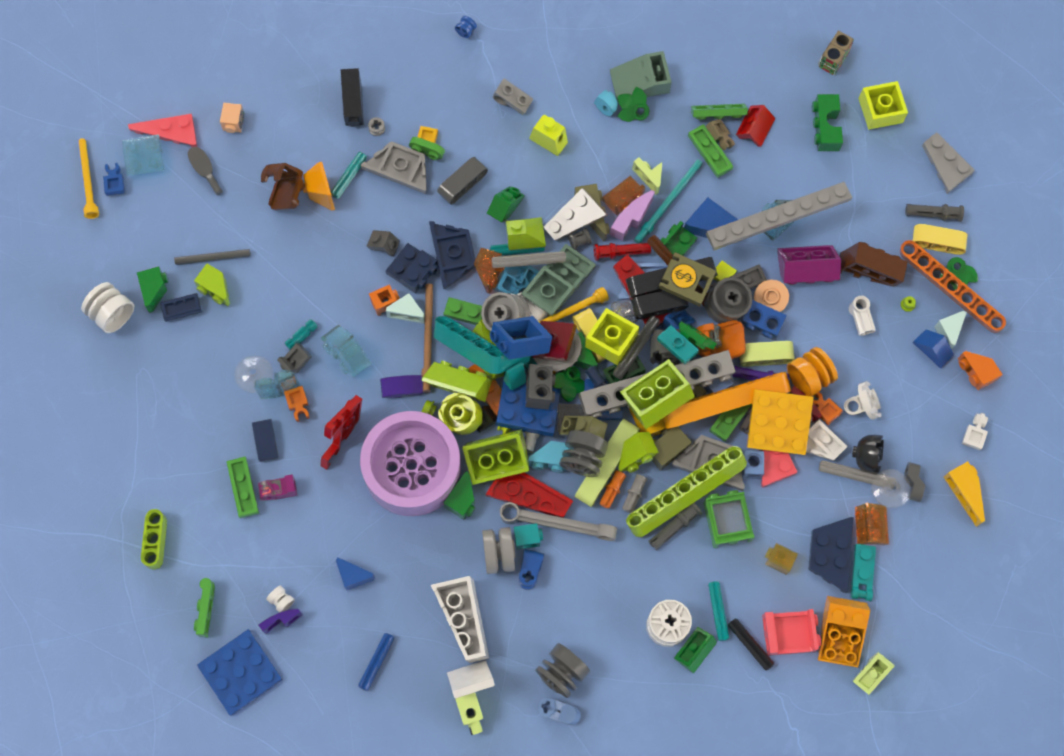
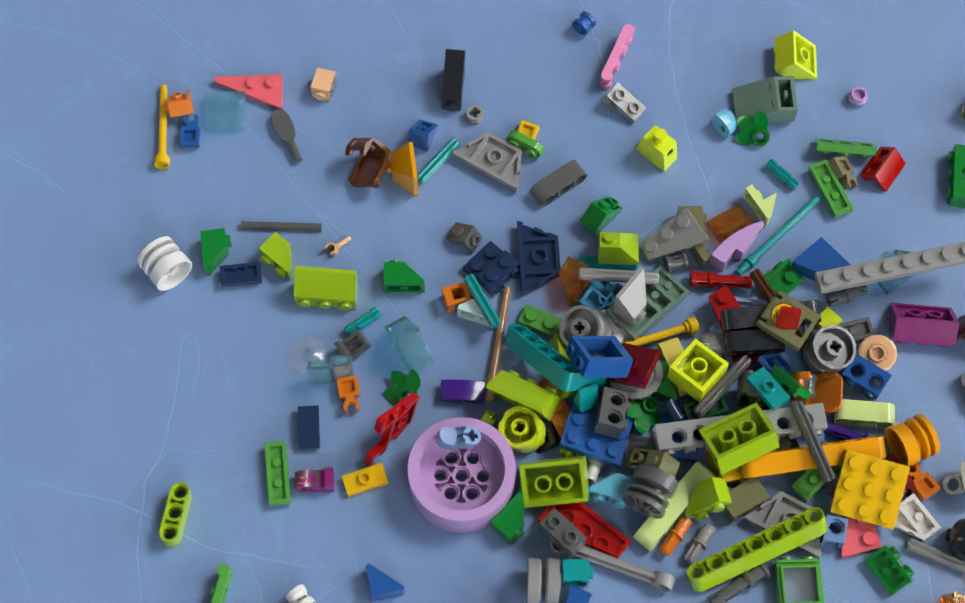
camera: 10 degrees right, 5 degrees down
(99, 155) = (179, 104): none -> orange brick
(261, 309) = (325, 287): none -> lime slope
(266, 268) = (337, 246): none -> light nougat hand
(323, 480) = (365, 480): none -> yellow plate
(329, 289) = (401, 278): none -> green slope
(330, 152) = (422, 134): none -> blue slope
(345, 389) = (402, 385): none -> green plate
(401, 431) = (458, 437): none -> medium blue piece
(407, 301) = (482, 301): none -> teal axle
(497, 59) = (619, 50): none -> bright pink plate
(510, 503) = (562, 533): none -> dark grey brick
(543, 280) = (631, 300): none -> slope
(663, 32) = (795, 56): none -> neon yellow slope
(665, 143) = (782, 174): none -> teal axle
(687, 277) = (788, 317): none -> red slope
(723, 387) = (812, 441): none -> dark grey axle
(724, 61) = (858, 96): none -> lavender plate
(736, 248) = (845, 295): none -> dark grey pin
(806, 490) = (889, 569): none -> green bracket

